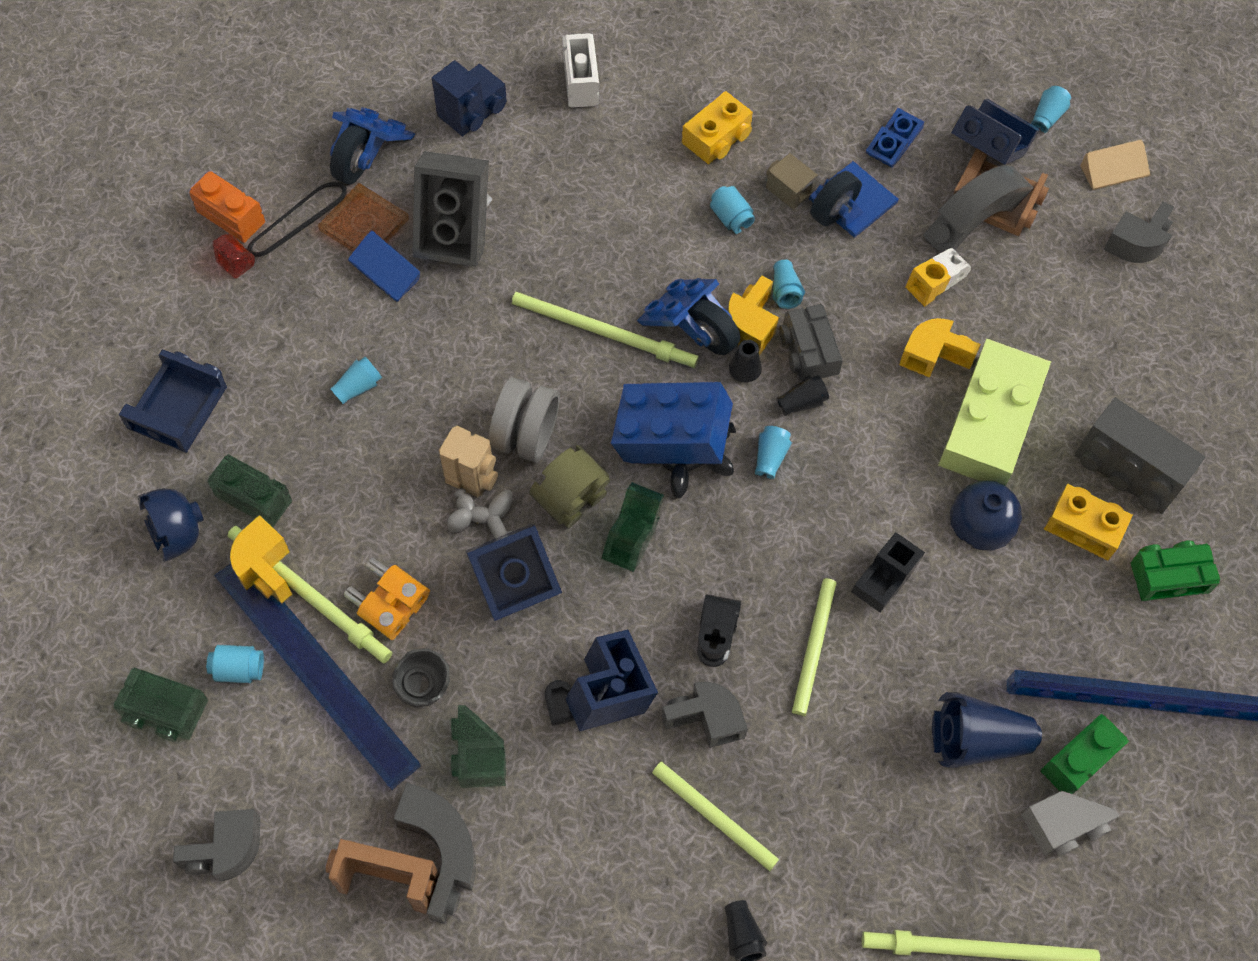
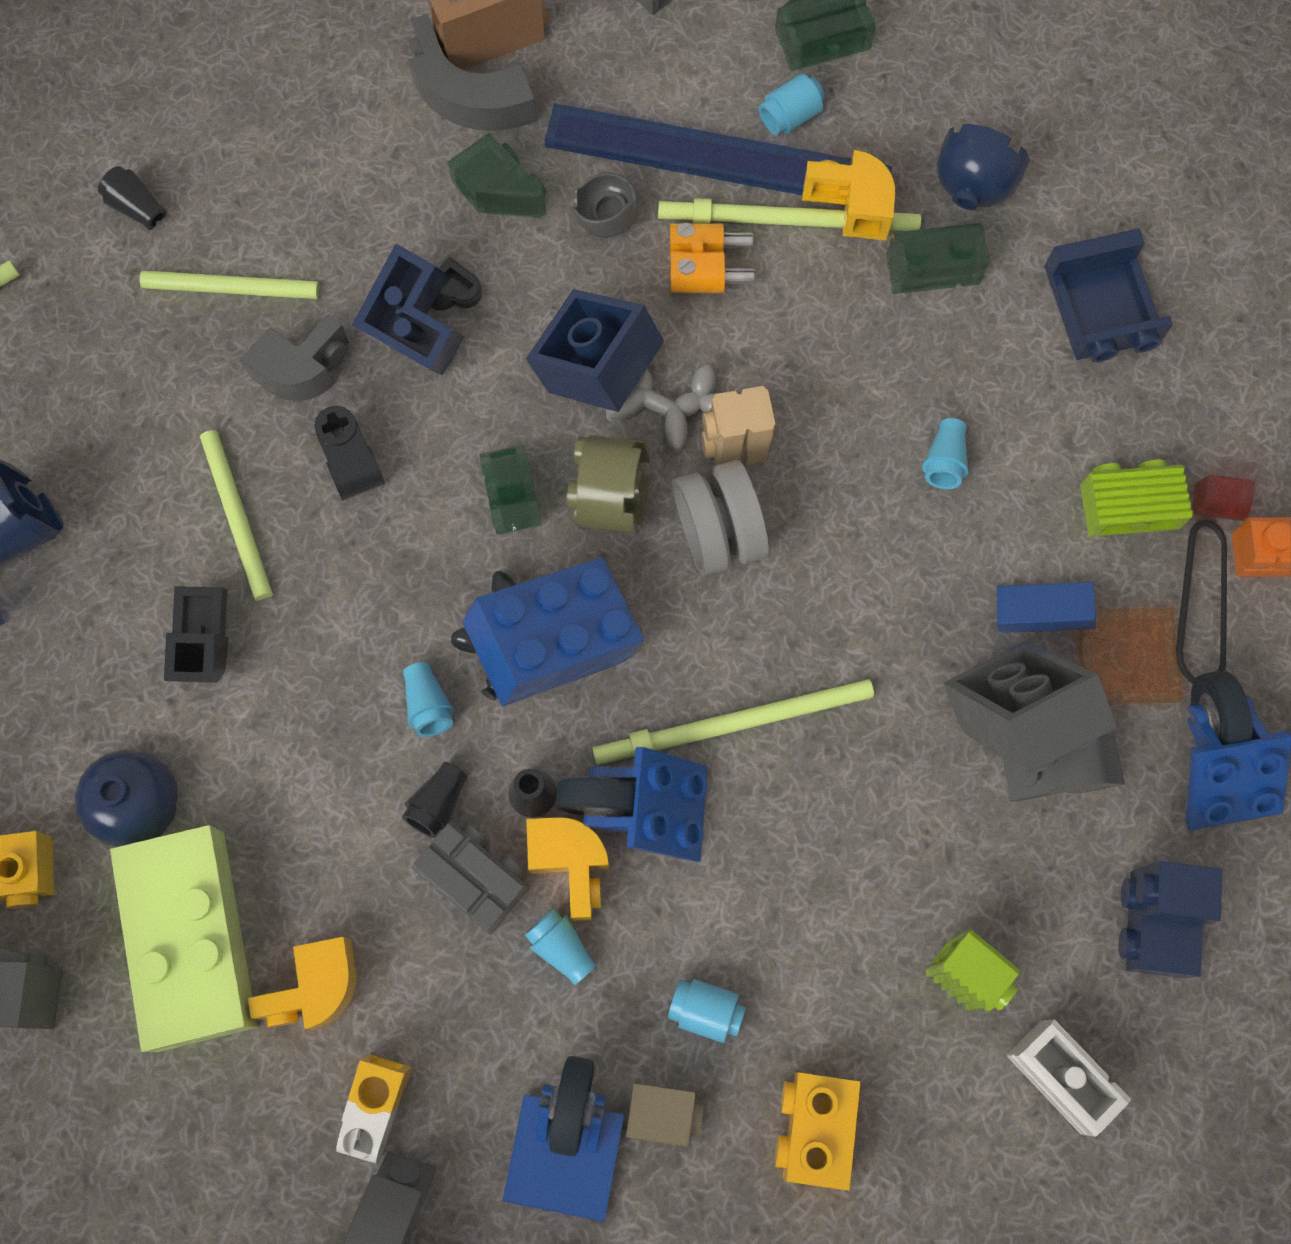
camera: 145 degrees right, 10 degrees up
(279, 285) = (1135, 499): none -> lime brick
(588, 131) = (974, 972): none -> lime brick

